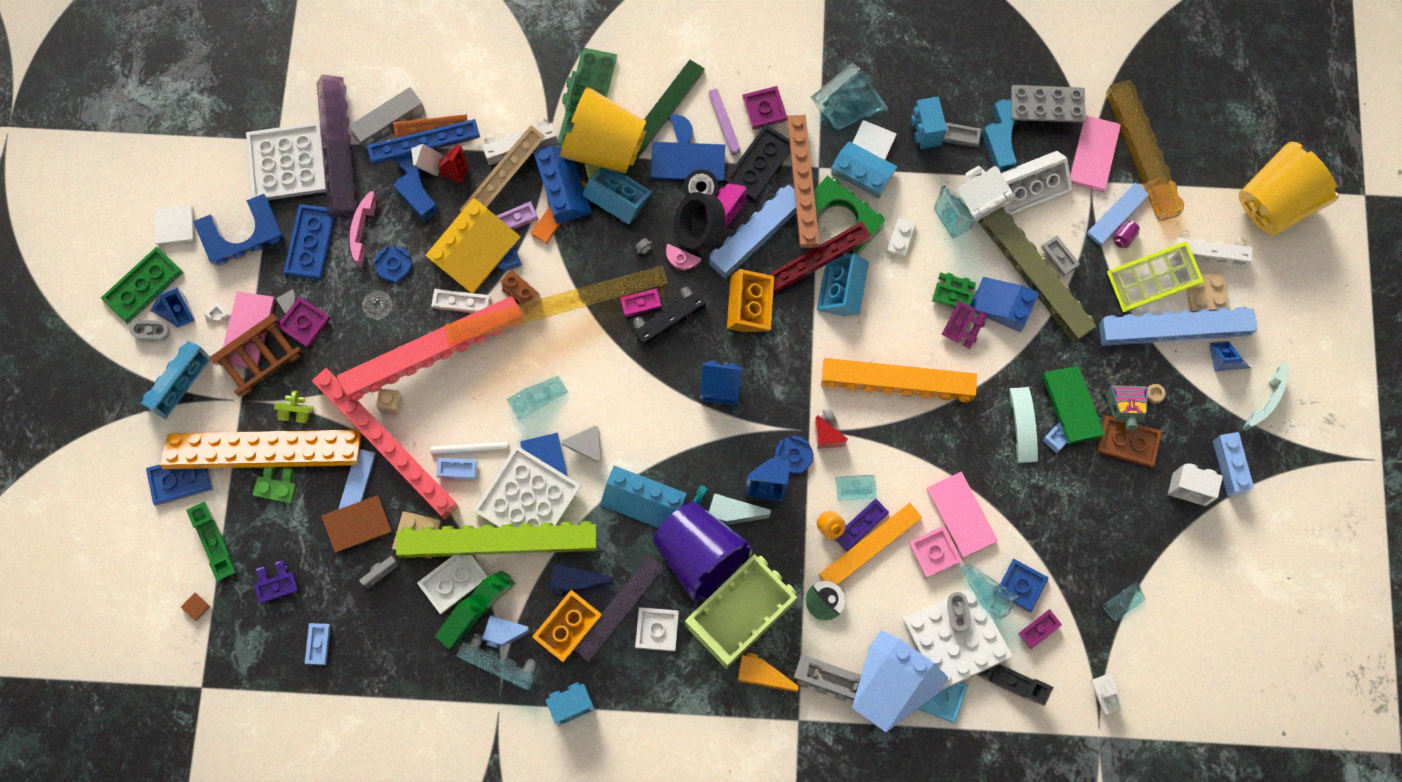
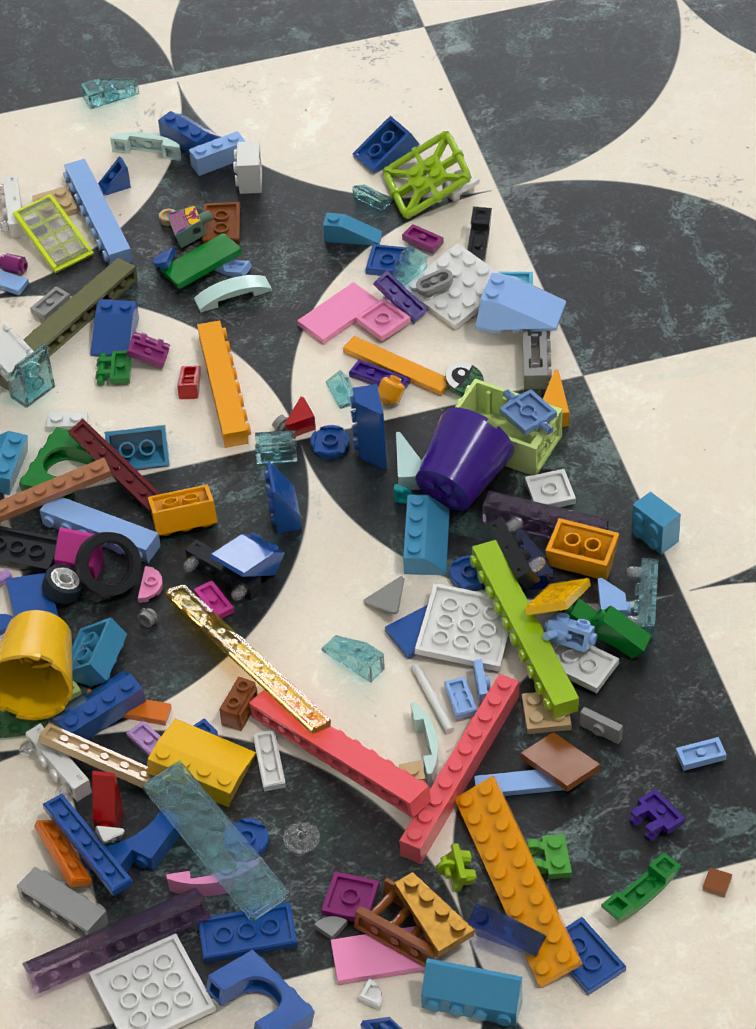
camera: 105 degrees left, 25 degrees down
(215, 420) = (505, 930): none -> clear blue slope
(243, 369) = (437, 919): none -> wing
(382, 230) = (216, 841): none -> clear light blue plate
(445, 427) = (423, 724): none -> light aqua slope
(463, 490) = (482, 681): none -> light blue plate
(474, 570) = (570, 633): none -> light blue brick
(511, 578) = (557, 596): none -> yellow tile
(579, 561) = (515, 554): none -> black piece
(596, 516) = (464, 576): none -> blue tile
(663, 334) = (250, 556): none -> slope
(727, 627) = (528, 412): none -> medium blue plate
(797, 402) = (276, 446): none -> clear light blue brick
(906, 356) = (189, 385): none -> red slope
(953, 574) = (400, 296): none -> dark purple tile
(1072, 561) = (347, 230): none -> dark azure slope
(1089, 371) = (164, 259): none -> blue tile
(1116, 668) = (430, 166): none -> lime plate
(1194, 638) = (385, 145): none -> blue slope
(1278, 447) = (184, 131): none -> blue slope
(1370, 377) = (106, 91): none -> clear light blue slope

